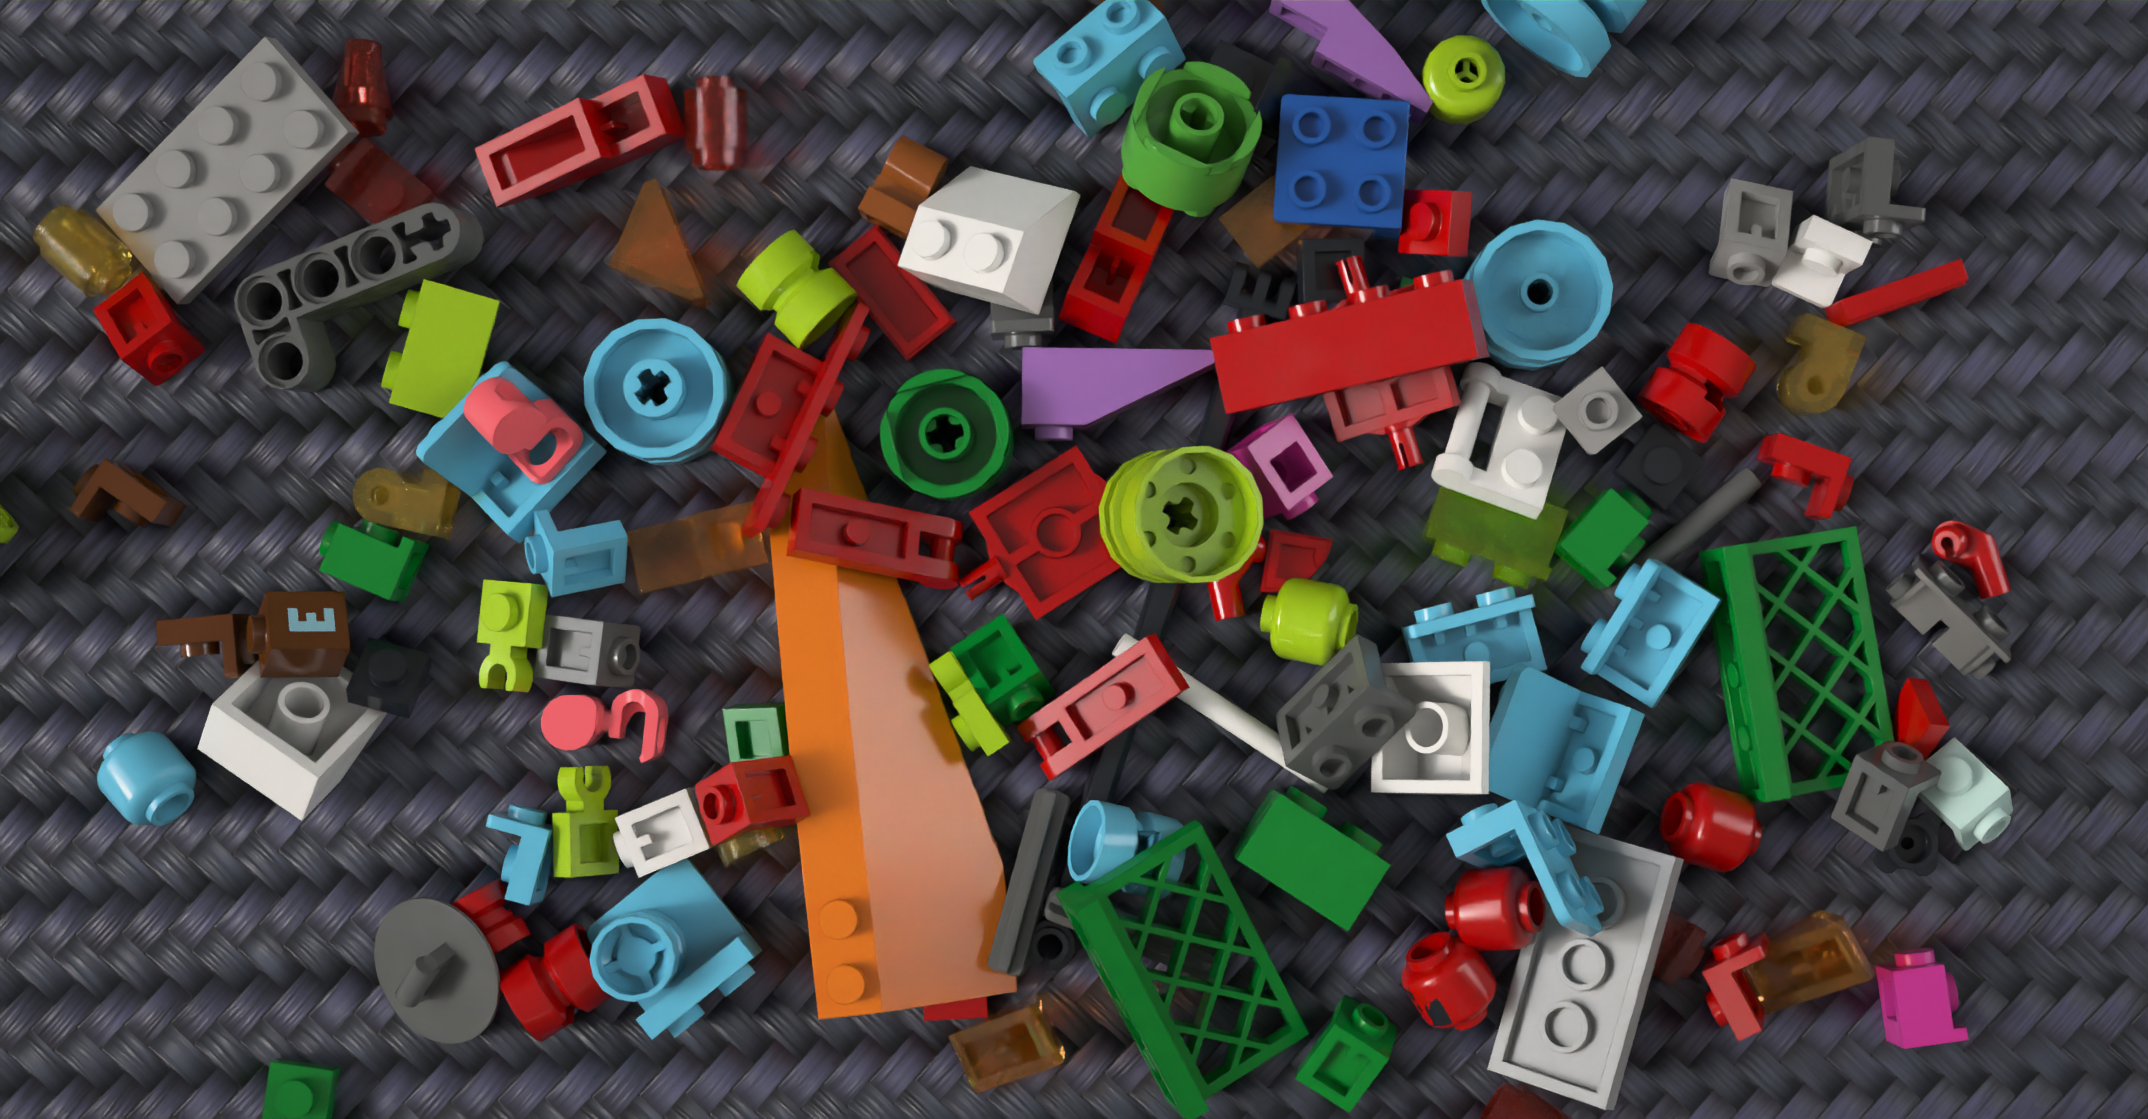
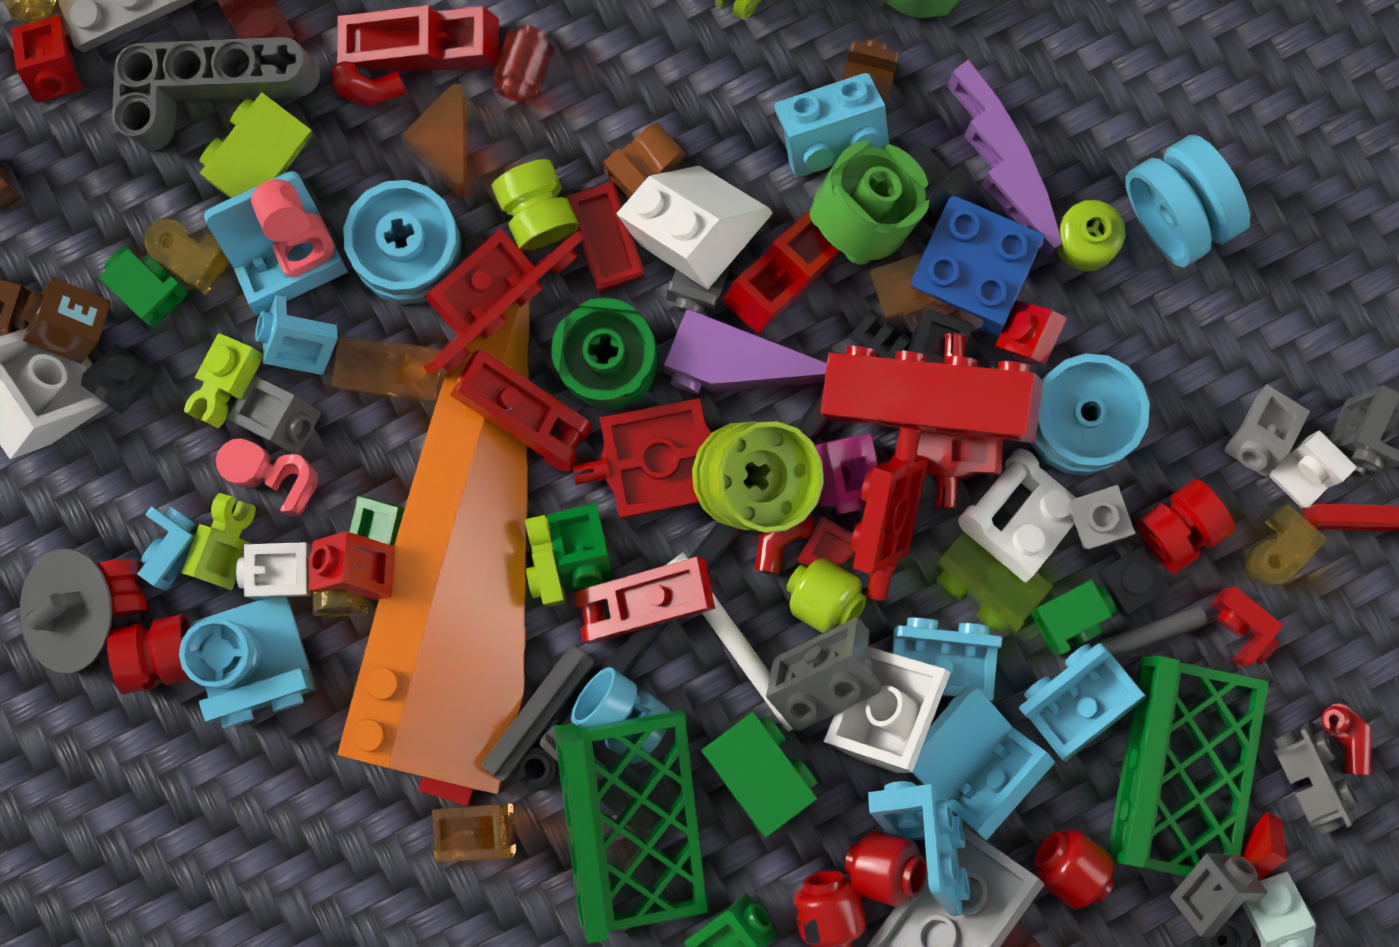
camera: 10 degrees right, 5 degrees down
(539, 226) = (362, 90): none -> red arm
(1350, 499) = (890, 512): none -> red plate

